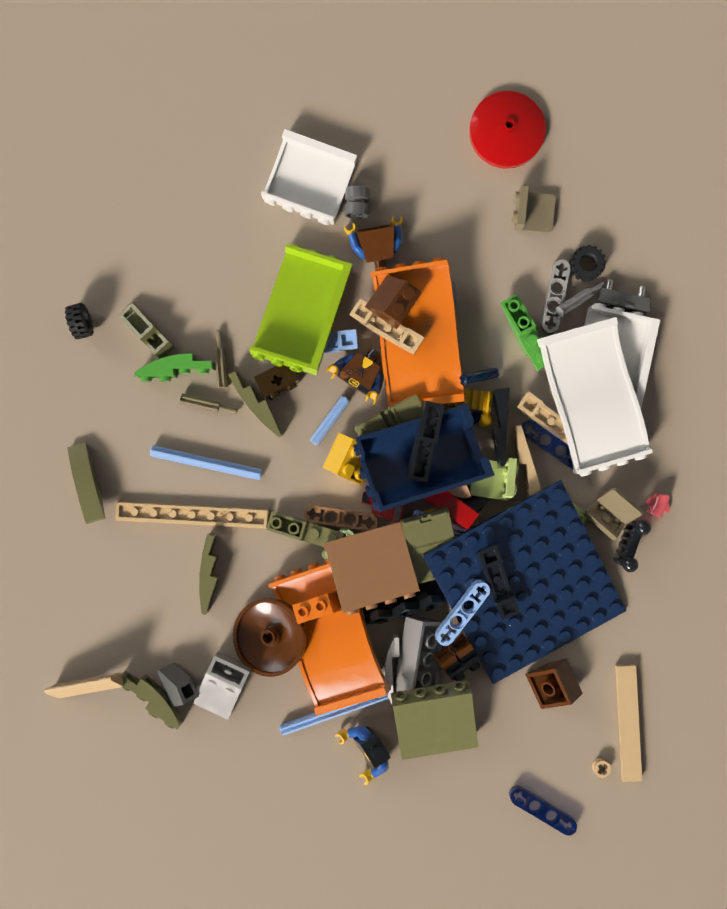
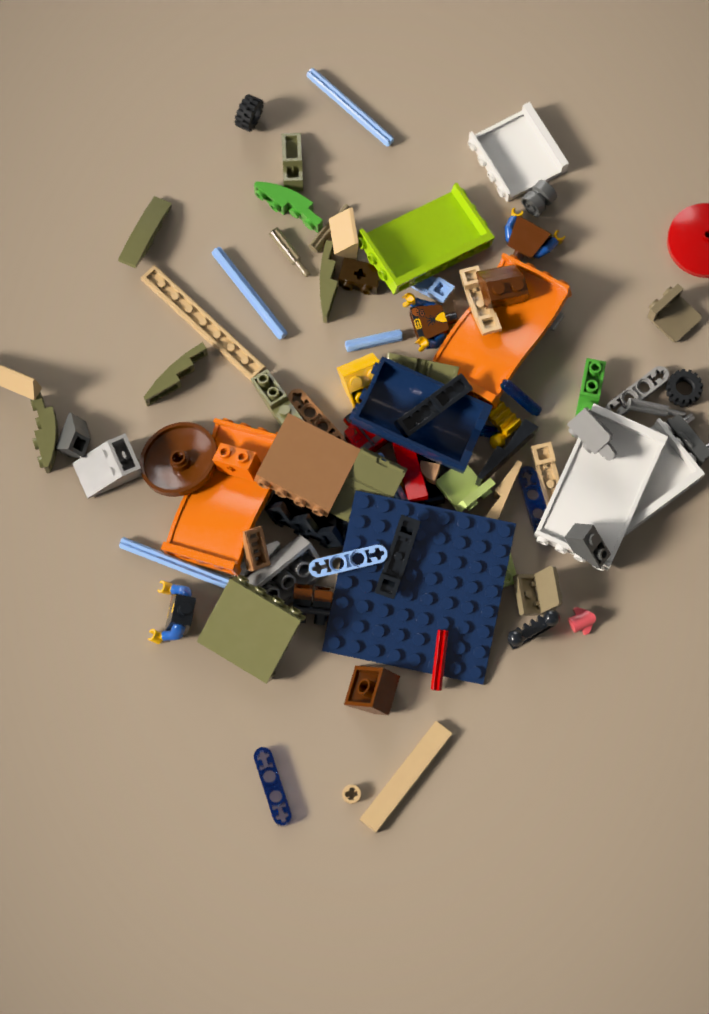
camera: 35 degrees right, 15 degrees down
(150, 248) = (350, 107): none -> light blue axle
(238, 359) = (344, 234): none -> tan slope
(399, 663) = (262, 553): none -> medium nougat slope
(561, 363) = (592, 433): none -> light grey hinge
(585, 623) = (439, 660): none -> red axle
(626, 452) = (587, 544): none -> dark grey slope

